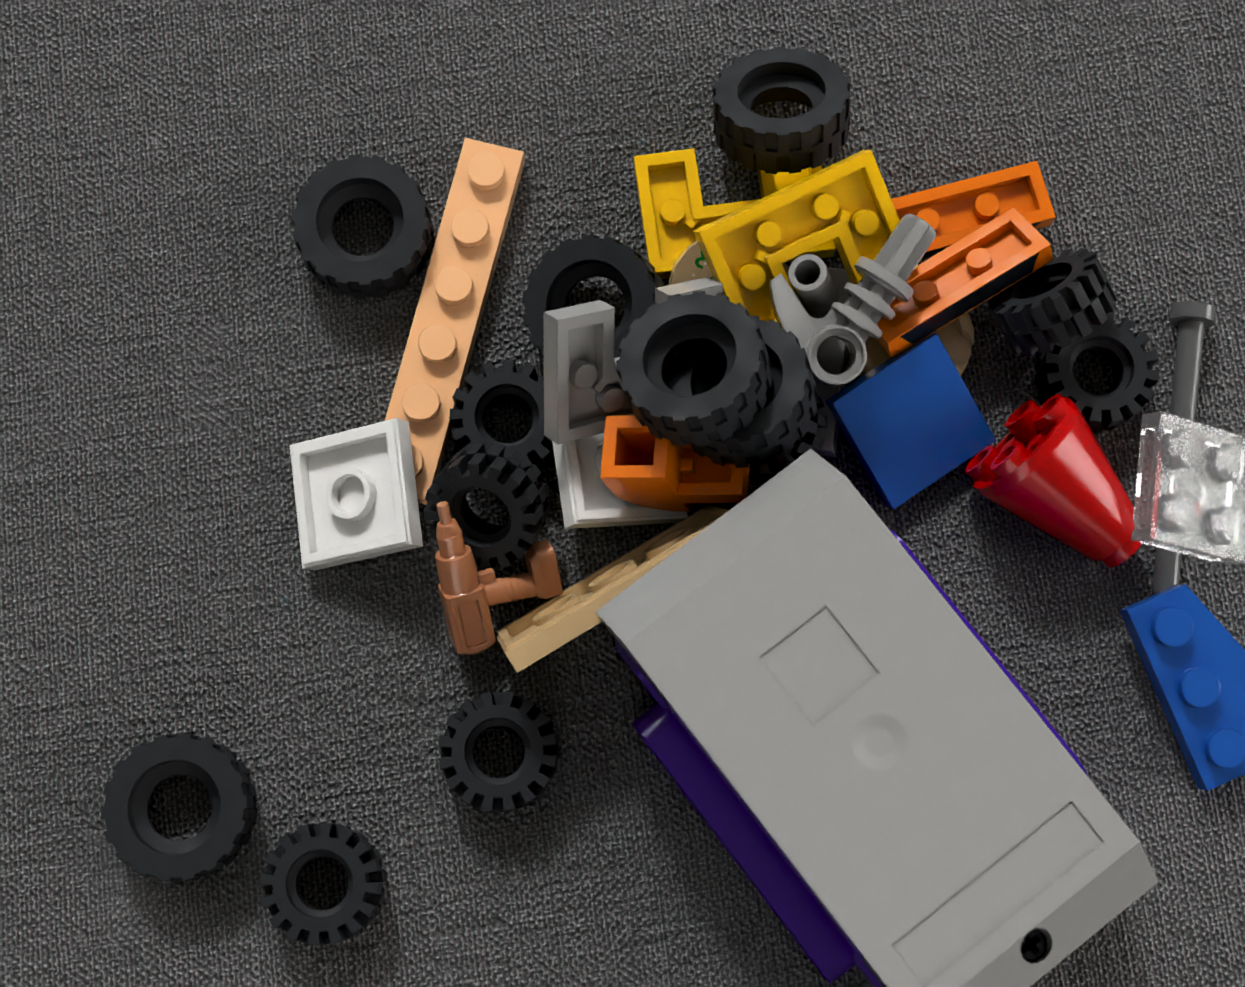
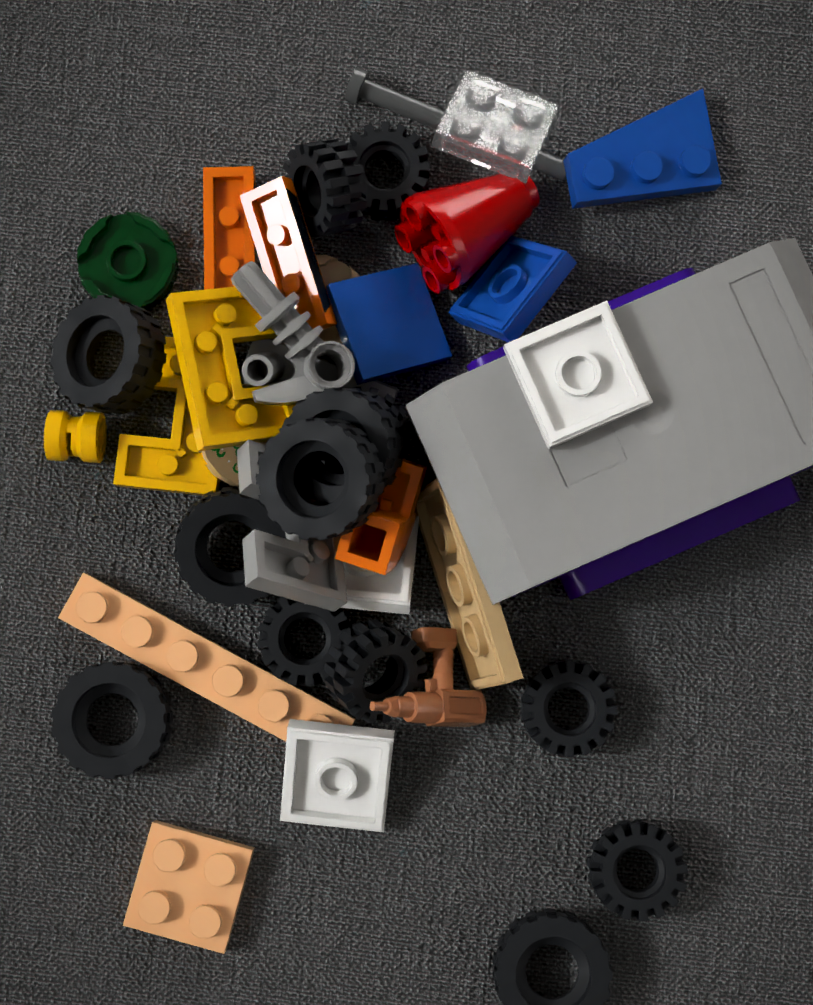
camera: 75 degrees left, 5 degrees up
(192, 363) = (188, 886): none -> light nougat plate
(678, 101) = (75, 436): none -> yellow wheel
(901, 636) = (577, 374): none -> white tile
(902, 109) = (128, 259): none -> dark green tile
(995, 555) = (512, 288): none -> blue tile

